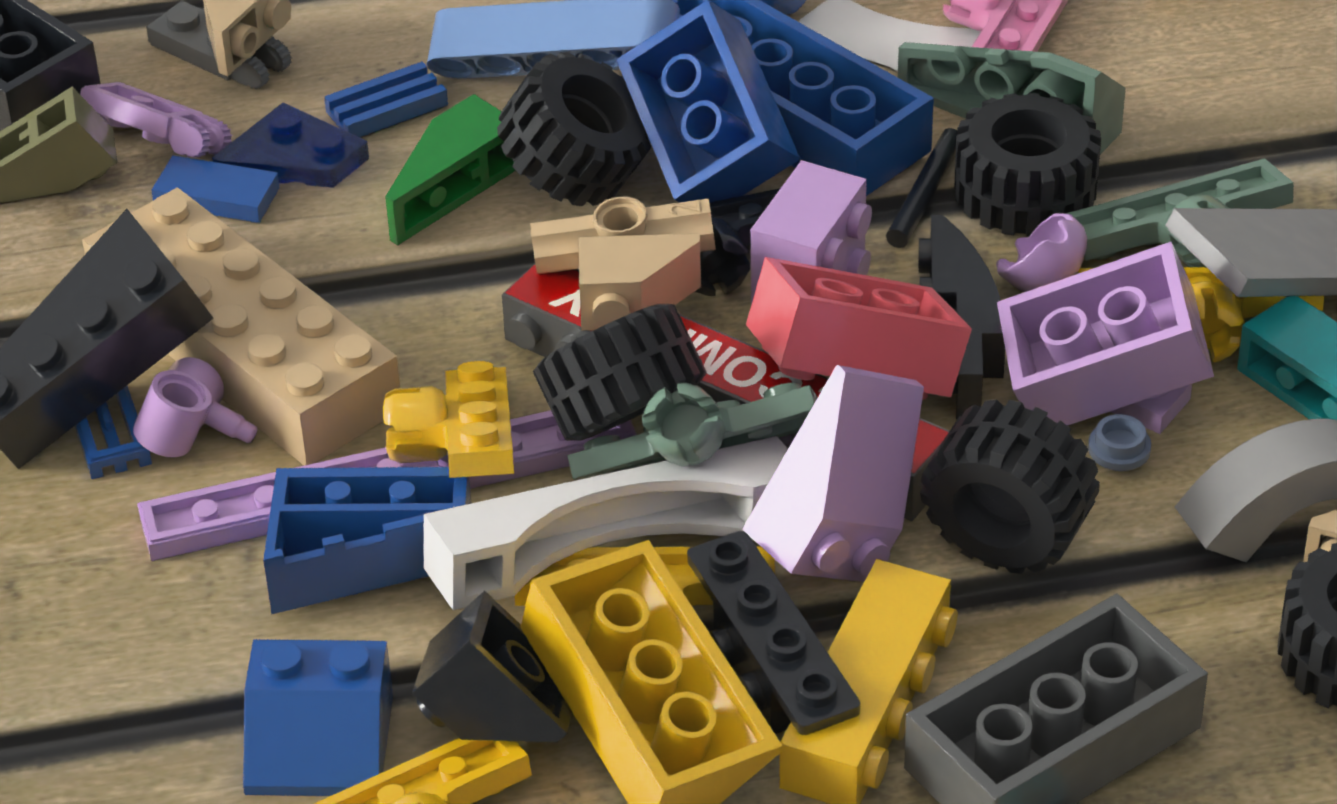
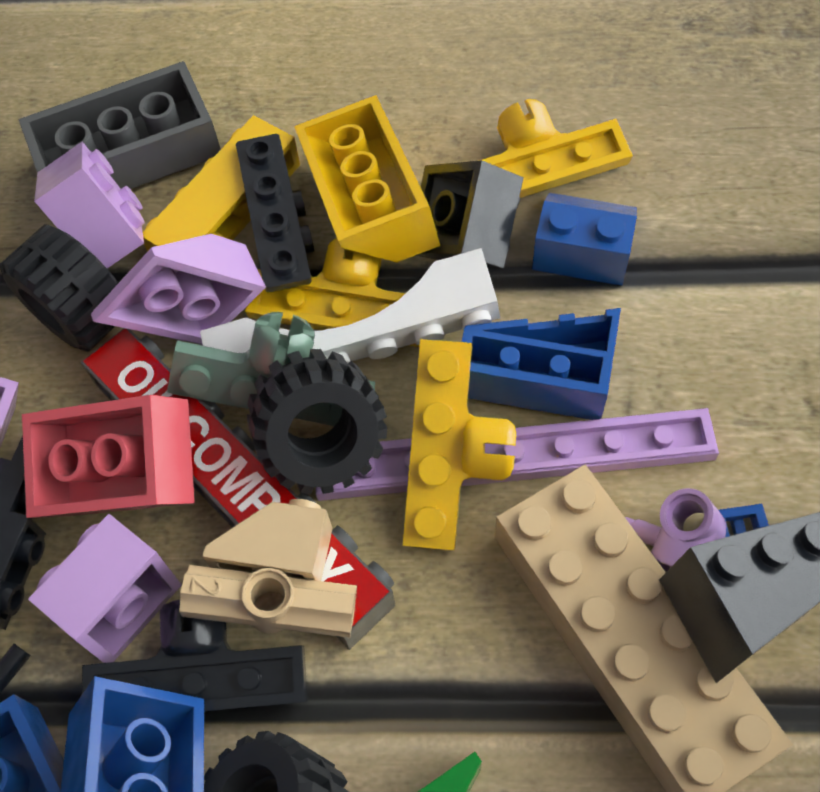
camera: 165 degrees left, 20 degrees up
(1024, 564) = (90, 205): none -> lavender brick

